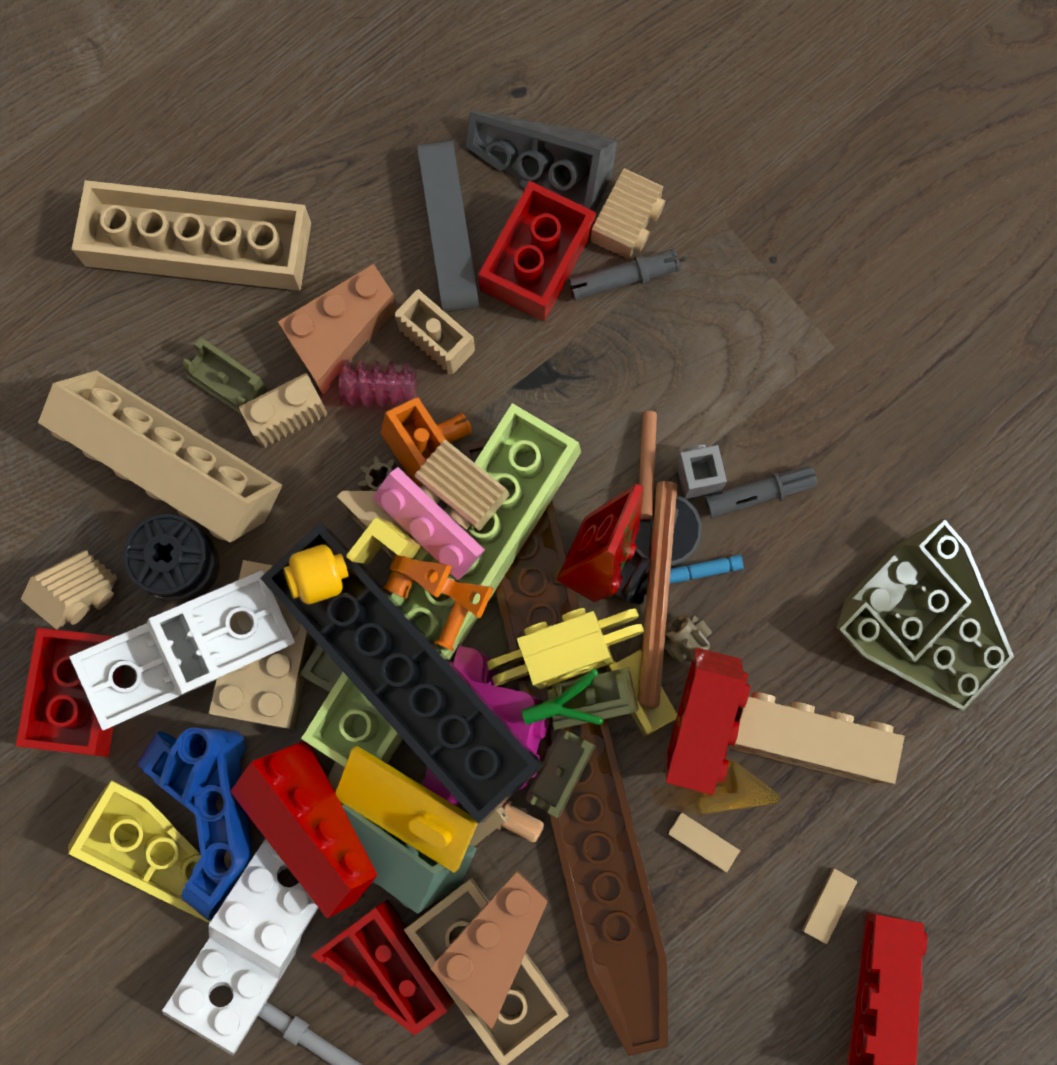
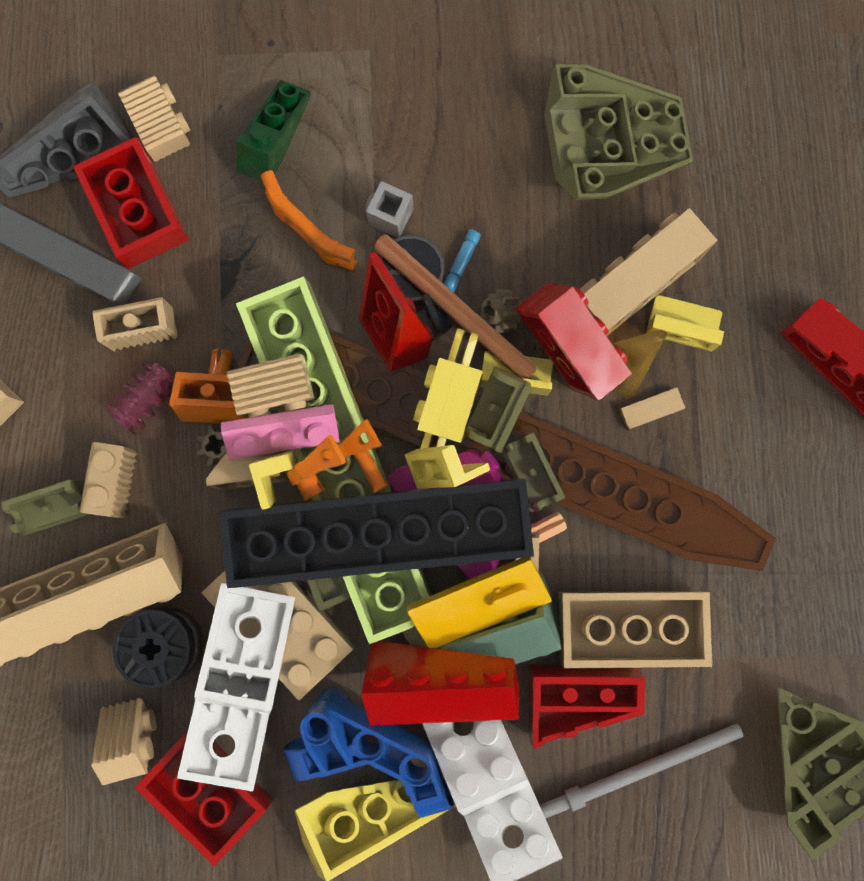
camera: 50 degrees left, 5 degrees up
(315, 574) = (257, 543): yellow head -> none
(339, 324) = (72, 391): nougat wedge -> none
(491, 947) = (625, 612): nougat wedge -> none
(495, 683) = (441, 467): none -> light yellow panel
(554, 706) = (485, 439): green plant -> none
(624, 444) = (329, 250): none -> orange piece
(625, 274) = (204, 142): dark grey pin -> none
(647, 462) = (347, 238): nougat bar -> none
(692, 319) = (271, 131): none -> dark green slope
(760, 491) = (434, 181): dark grey axle -> none
(806, 815) = (686, 323): none -> light yellow panel
(829, 906) = (758, 354): tan piece -> none

